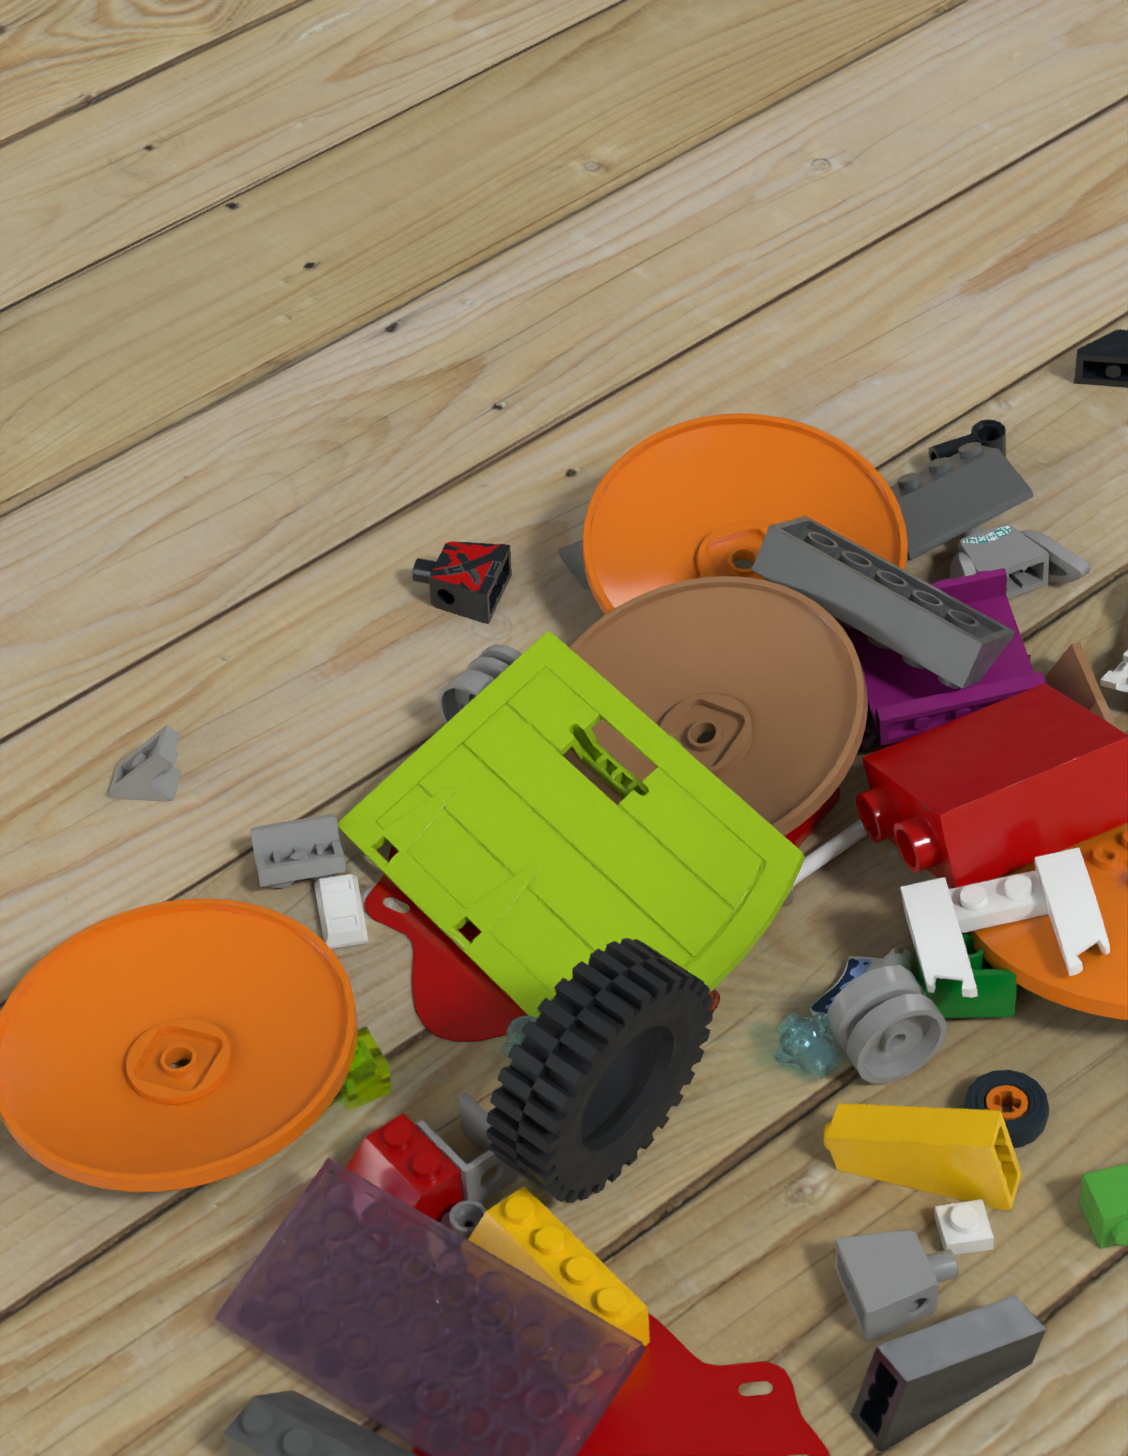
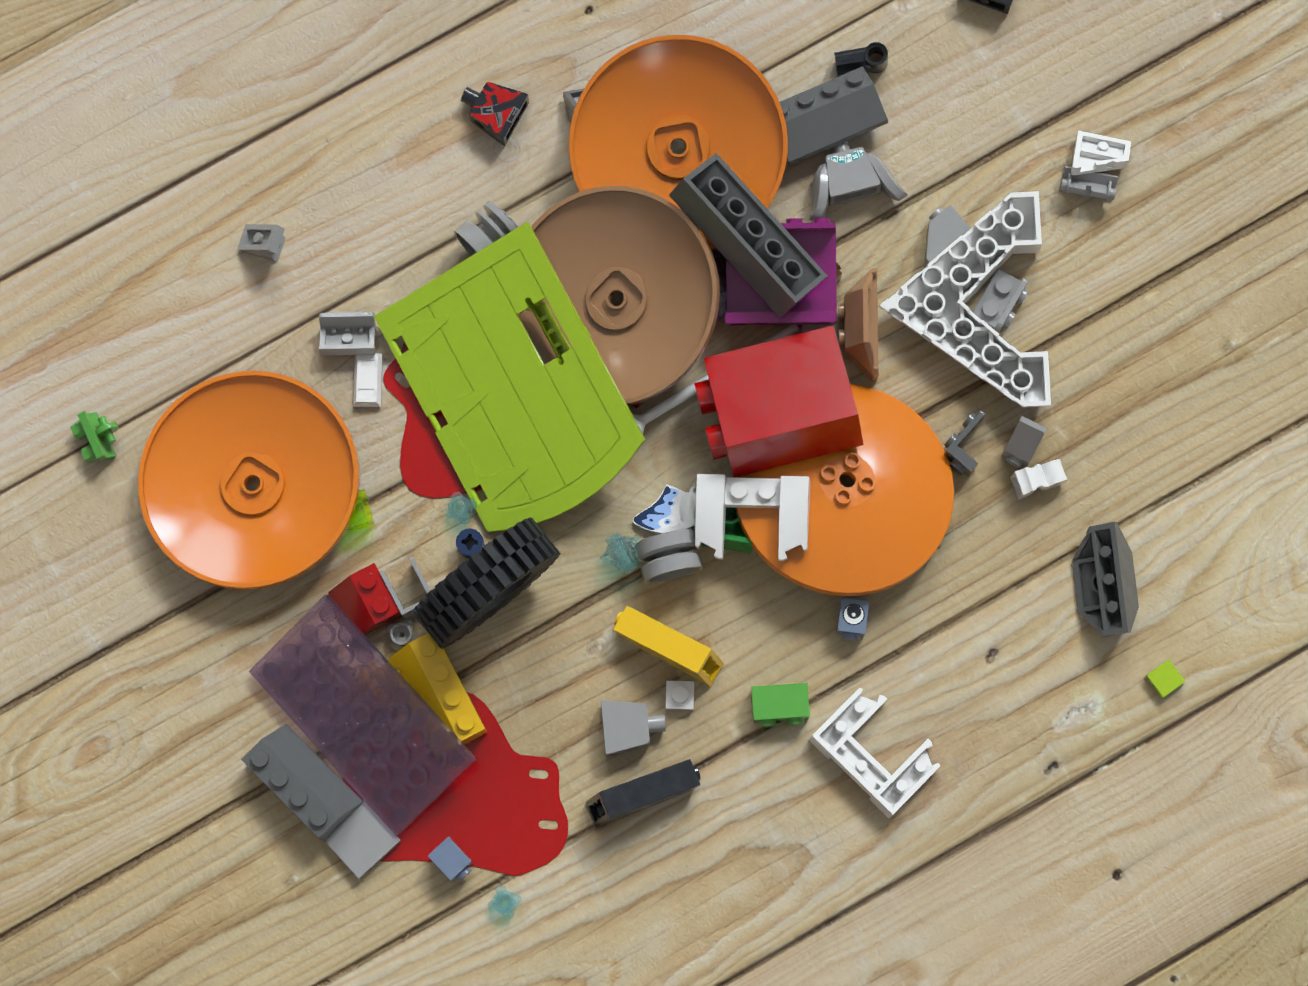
camera: 10 degrees right, 35 degrees up
(1014, 1089) = (740, 613): black bush -> none

